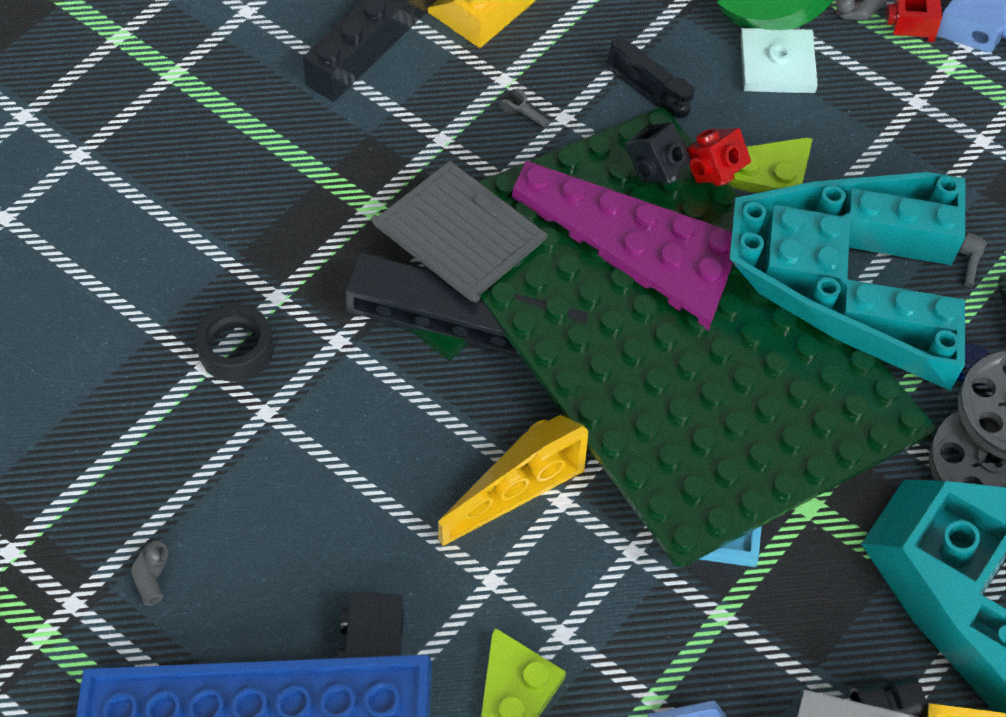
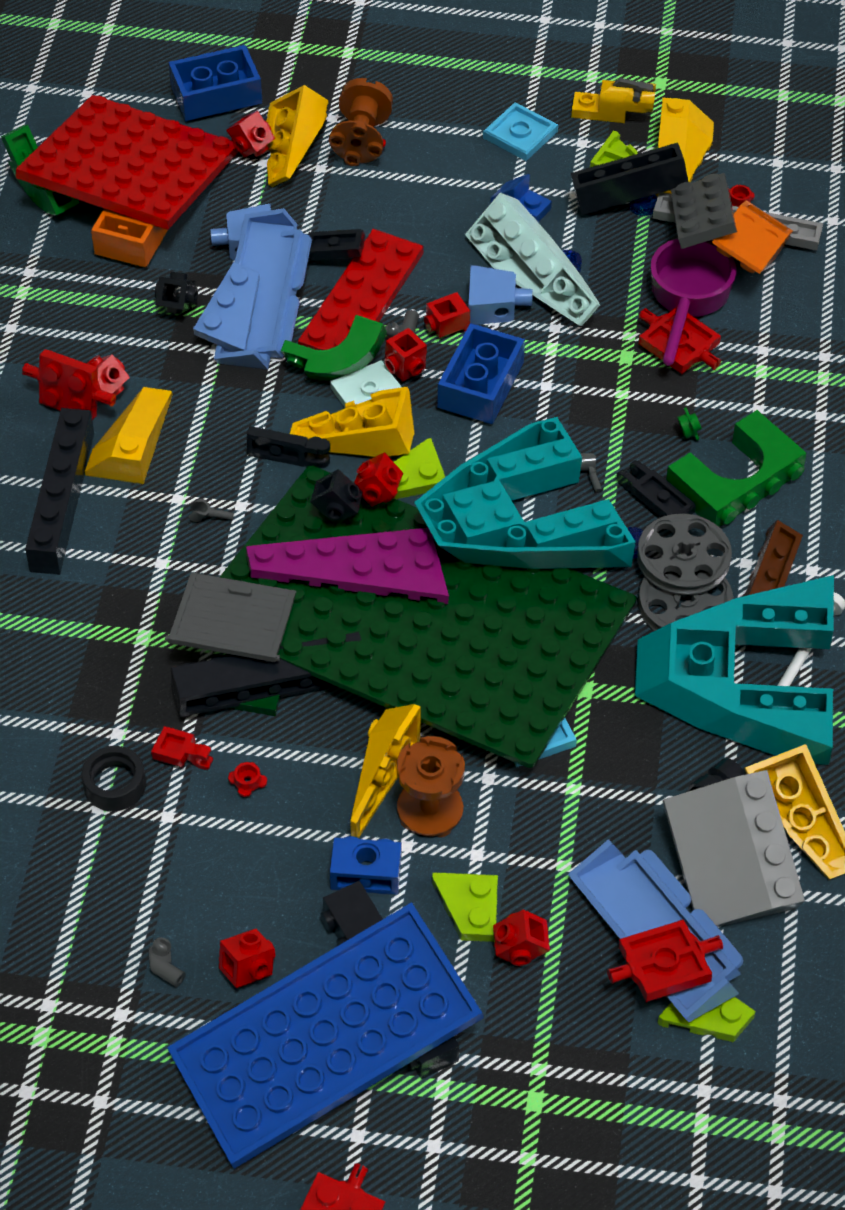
camera: 30 degrees left, 5 degrees down
(230, 615) = (246, 957): none -> red brick
(322, 342) = (178, 746): none -> red plate
(371, 405) = (244, 771): none -> red plate
(438, 600) = (378, 877): none -> blue brick
(546, 528) = (430, 779): none -> dark orange piece
(755, 98) = (365, 427): none -> yellow wedge
(839, 35) = (405, 355): none -> red brick
(911, 92) = (481, 373): none -> blue brick

